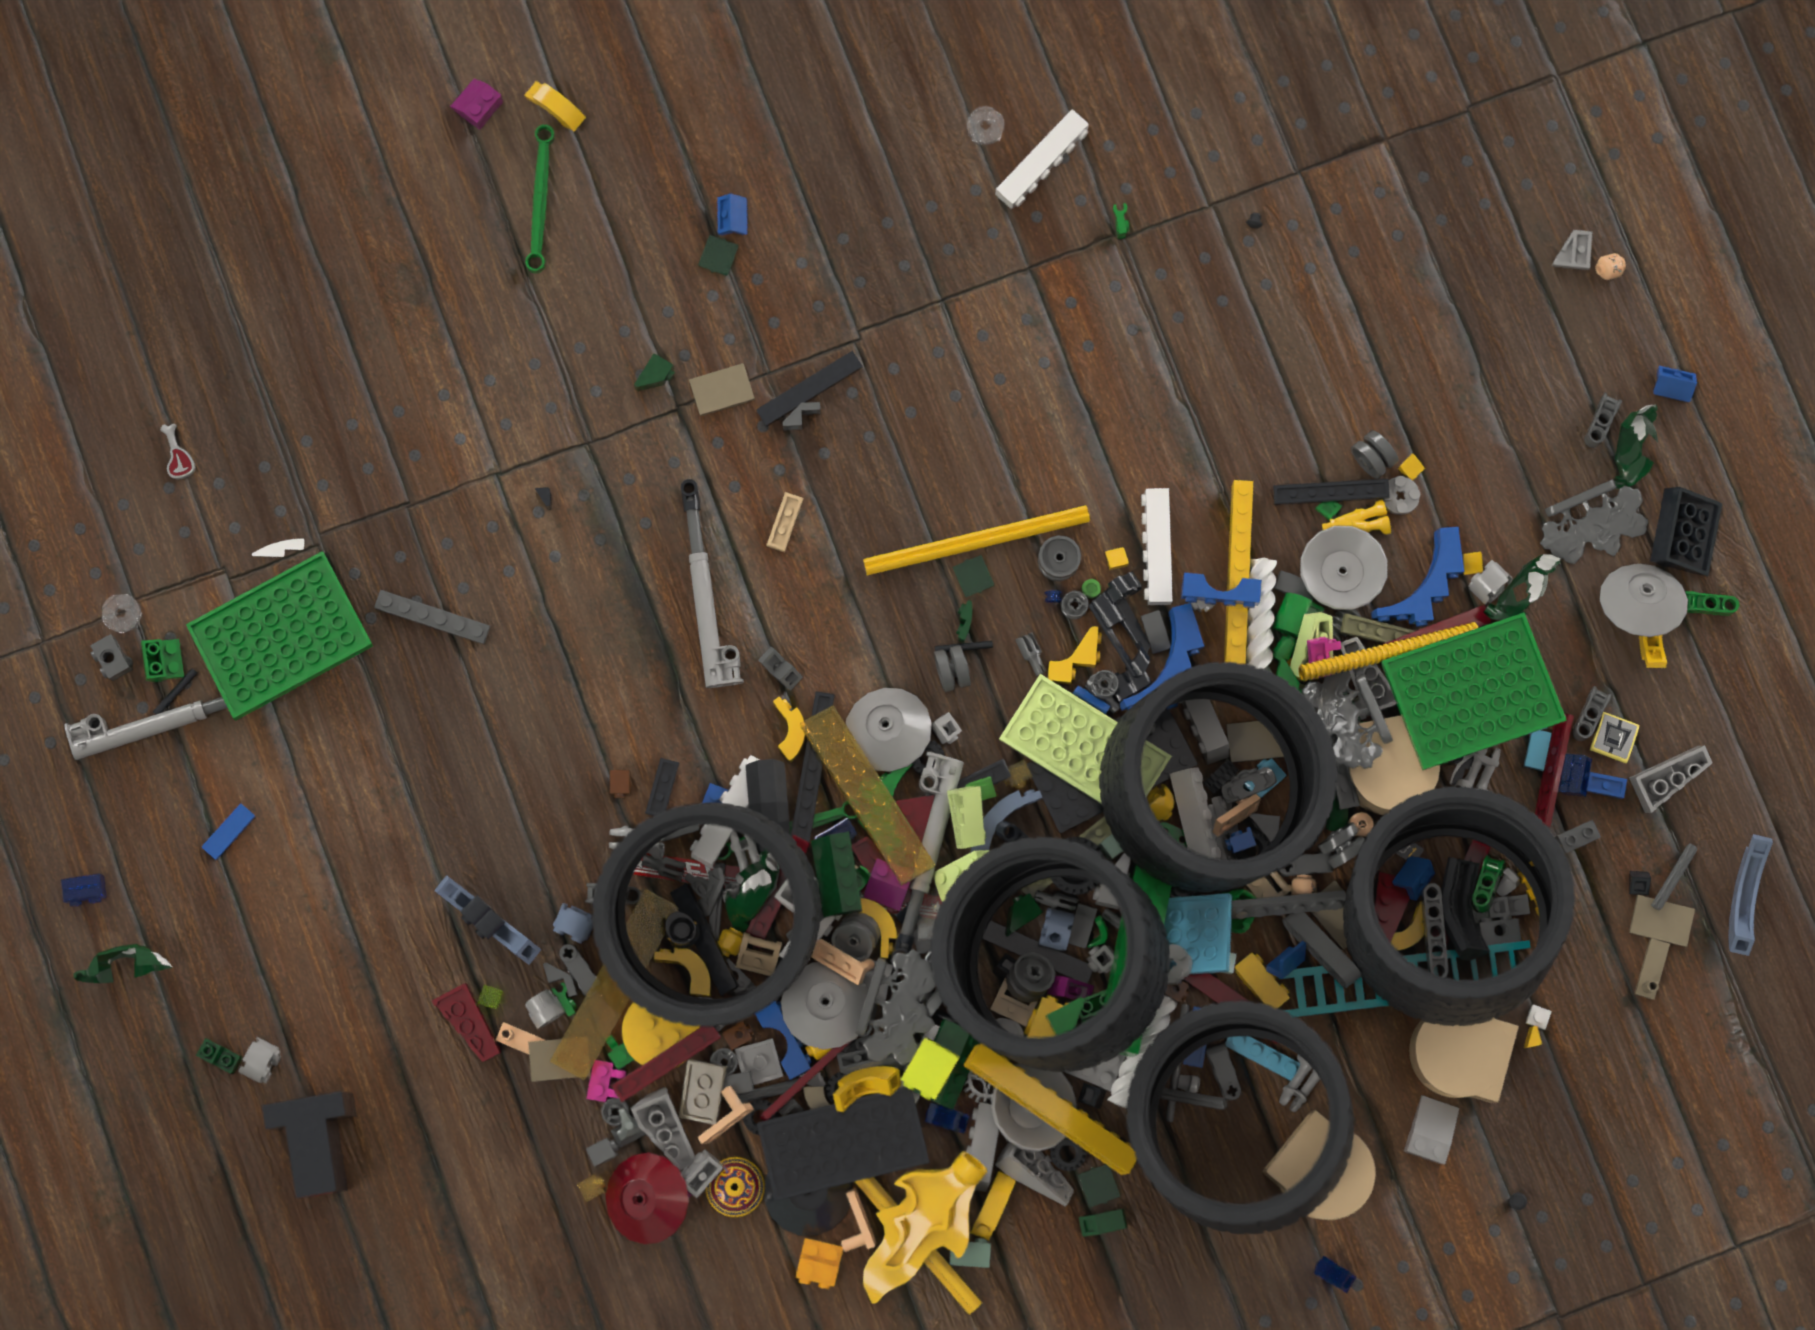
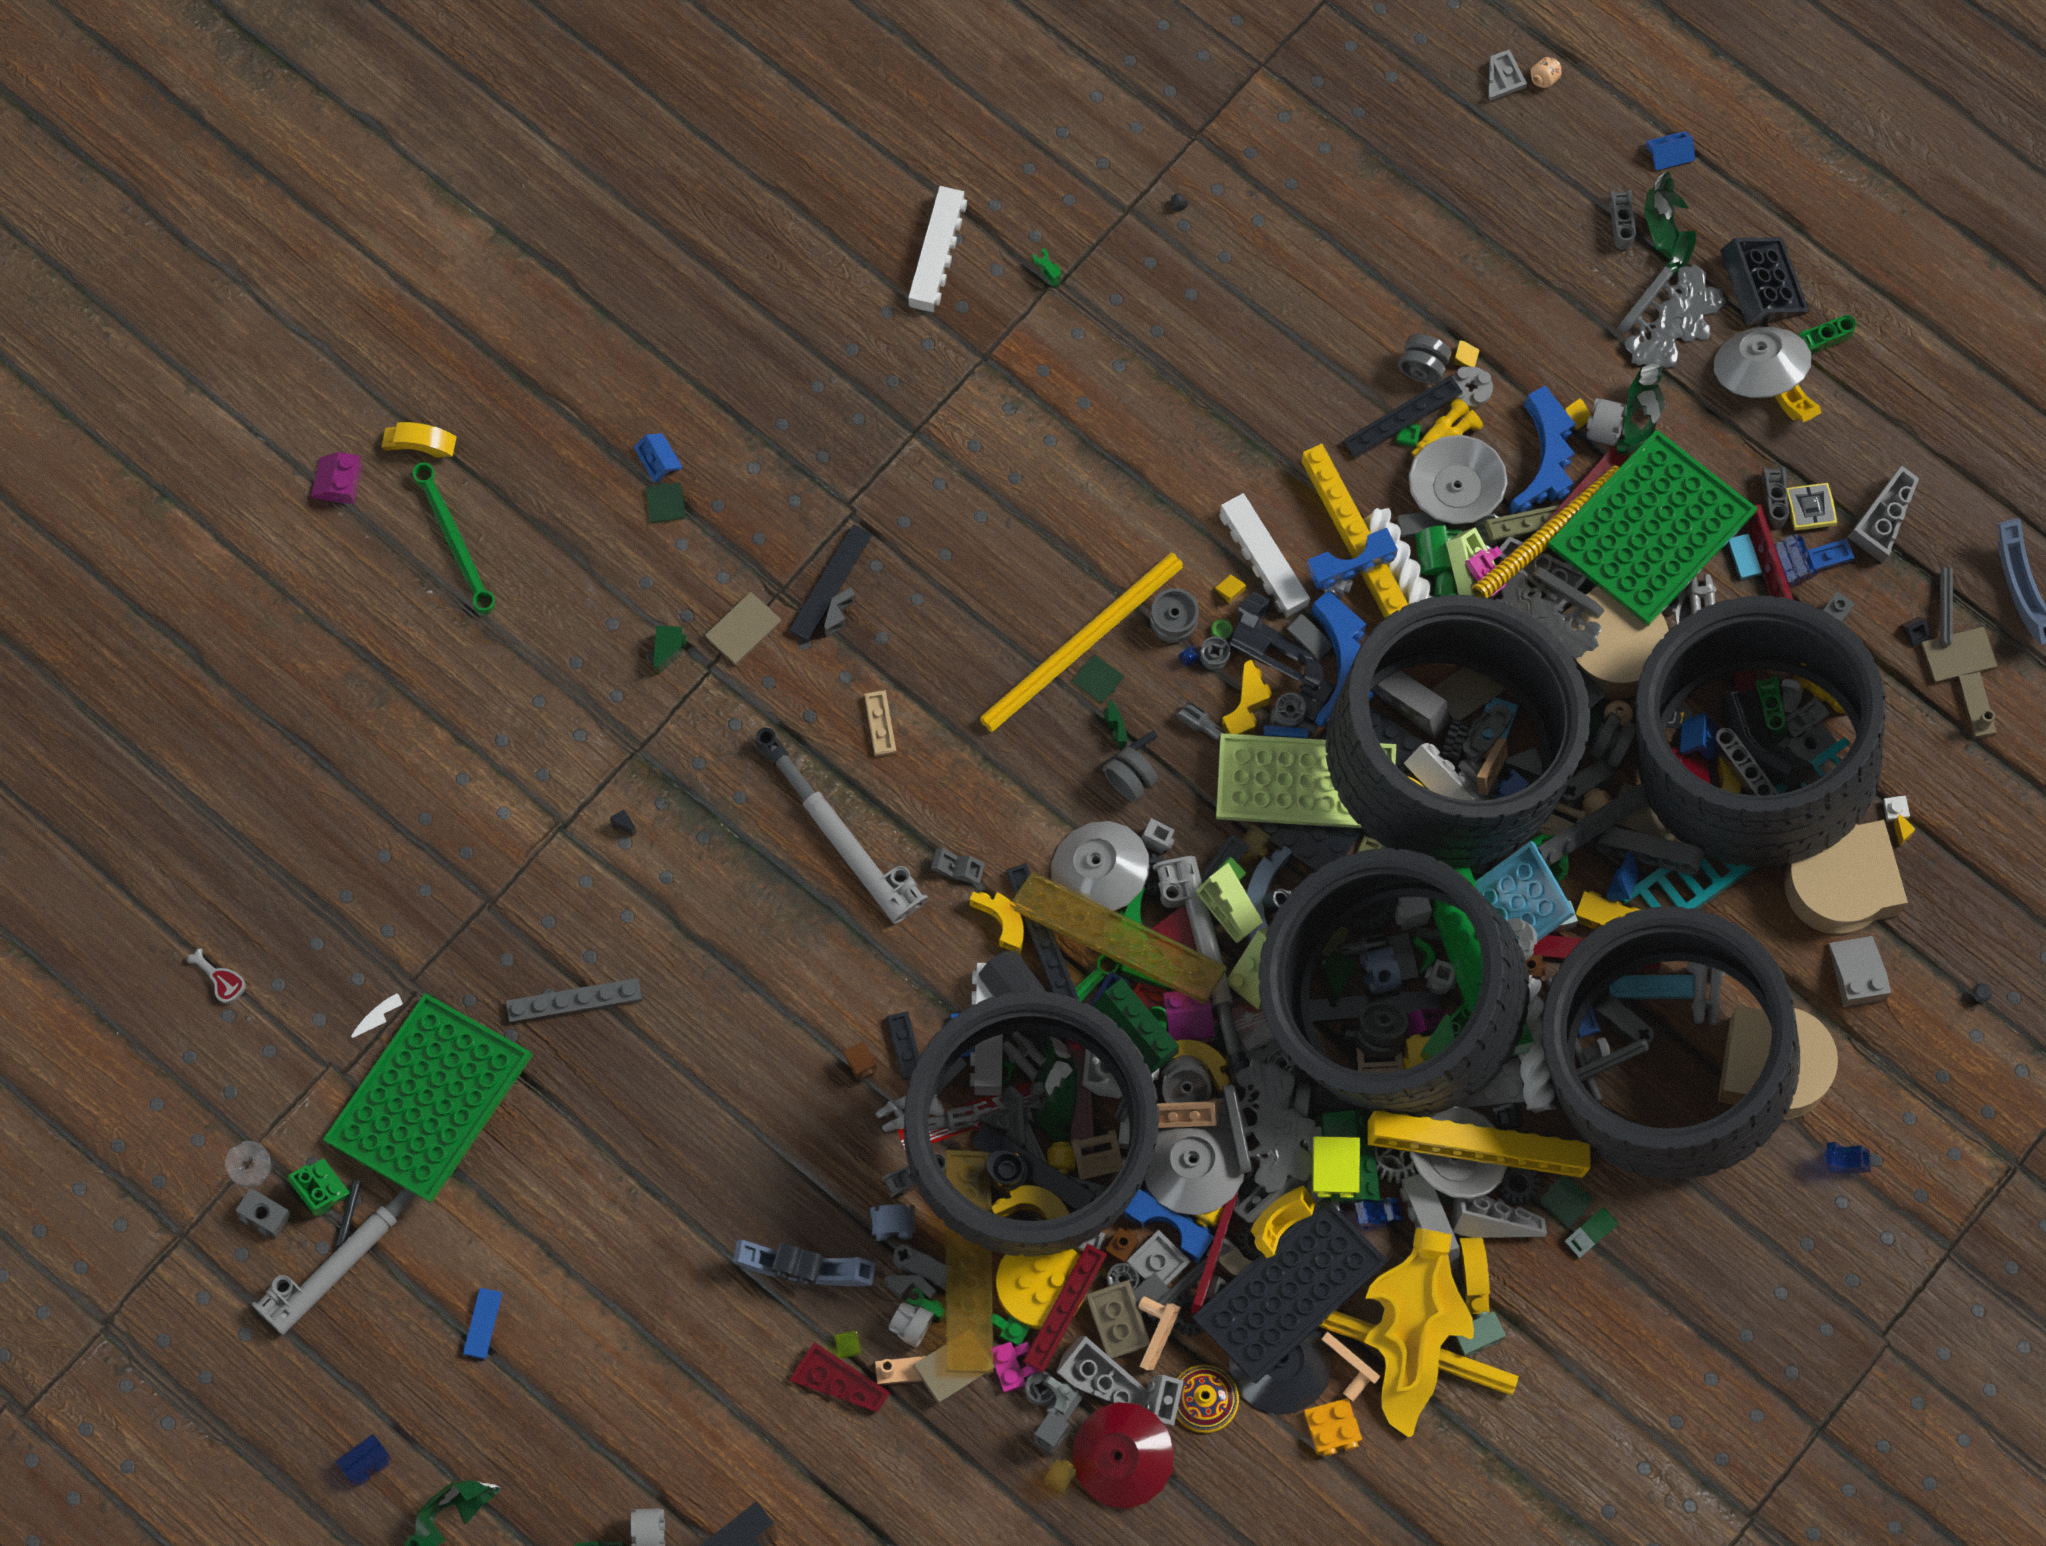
camera: 25 degrees left, 10 degrees down
(979, 134) = (862, 234): clear plate -> none

